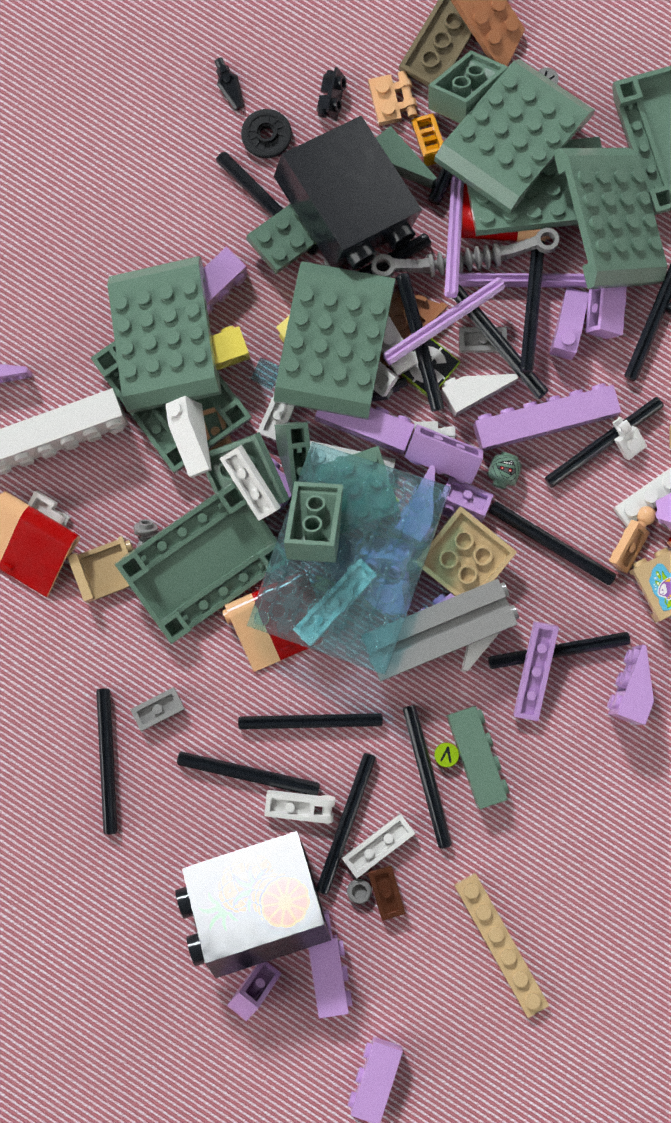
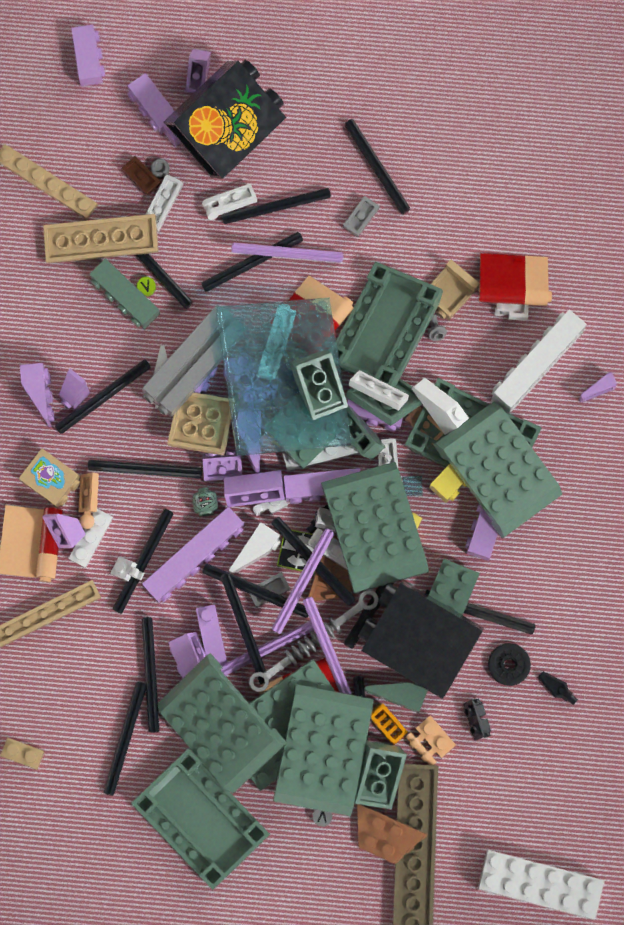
camera: 155 degrees right, 5 degrees down
(266, 709) = (287, 252): none -> lavender axle
(345, 824) = (192, 207): black axle -> none
(472, 837) = (100, 238): none -> tan plate
(536, 671) = (112, 371): lavender plate -> none
(592, 668) = (73, 390): none -> lavender slope

